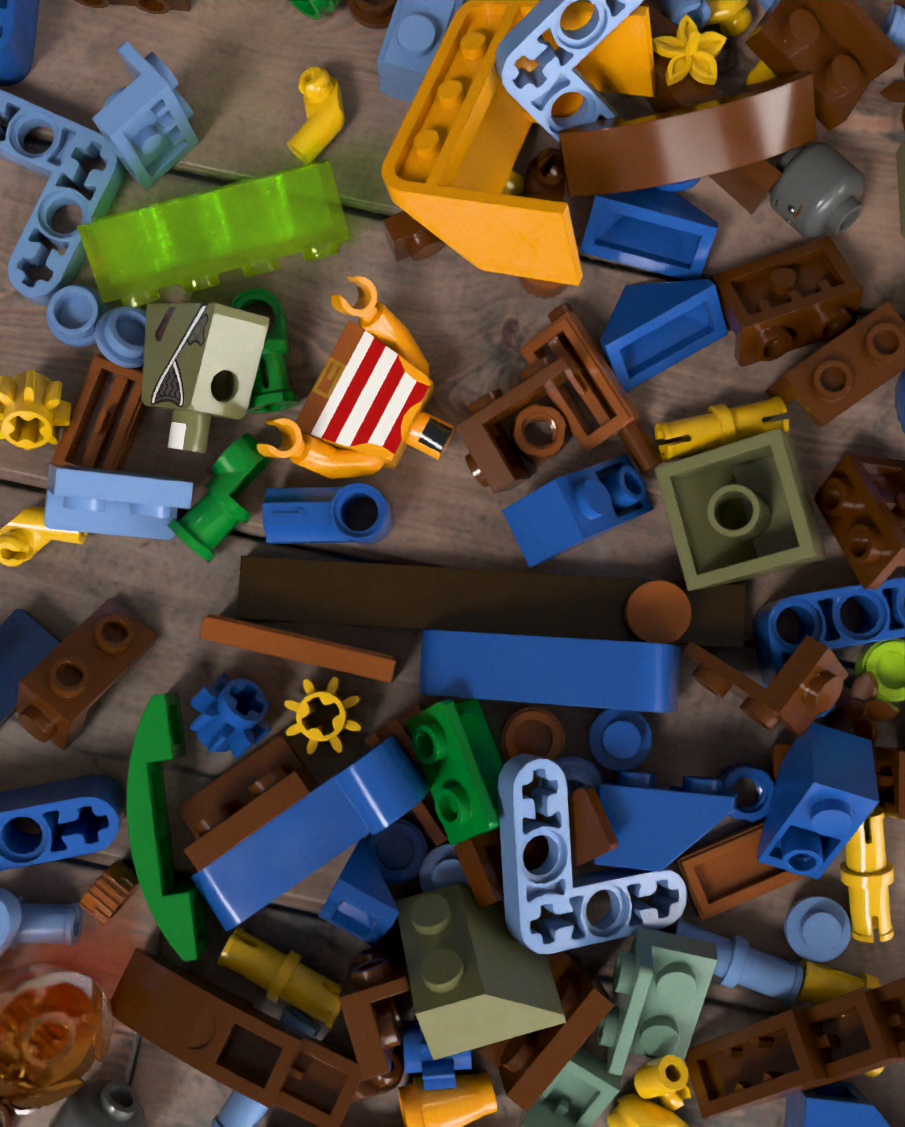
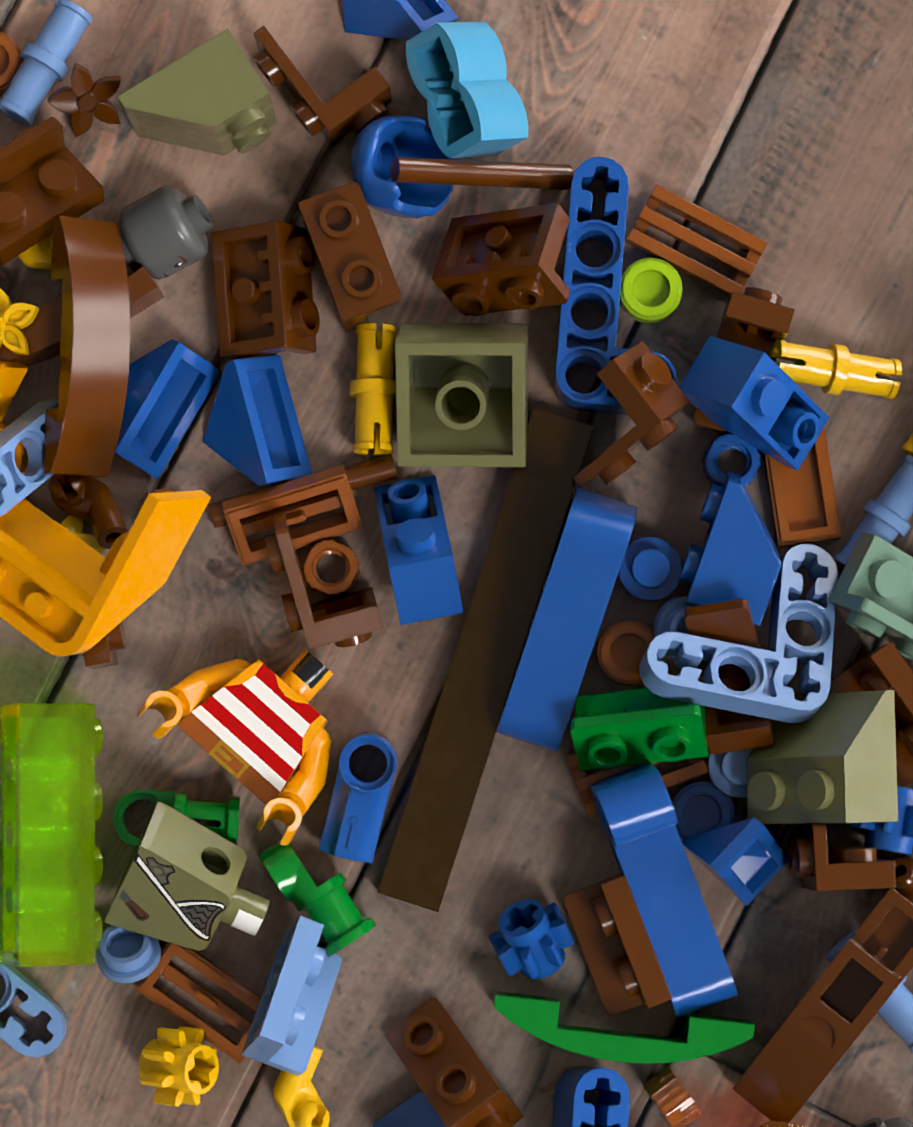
camera: 75 degrees left, 0 degrees up
(74, 314) = (90, 999): medium blue plate -> none
(282, 976) = (794, 951): yellow pin -> none
(298, 647) = (483, 855): dark orange tile -> none
(308, 707) = (569, 859): yellow gear -> none
(657, 612) = (538, 501): dark orange tile -> none
(817, 928) = (876, 429): medium blue plate -> none
(860, 708) = (679, 331): reddish brown plant -> none

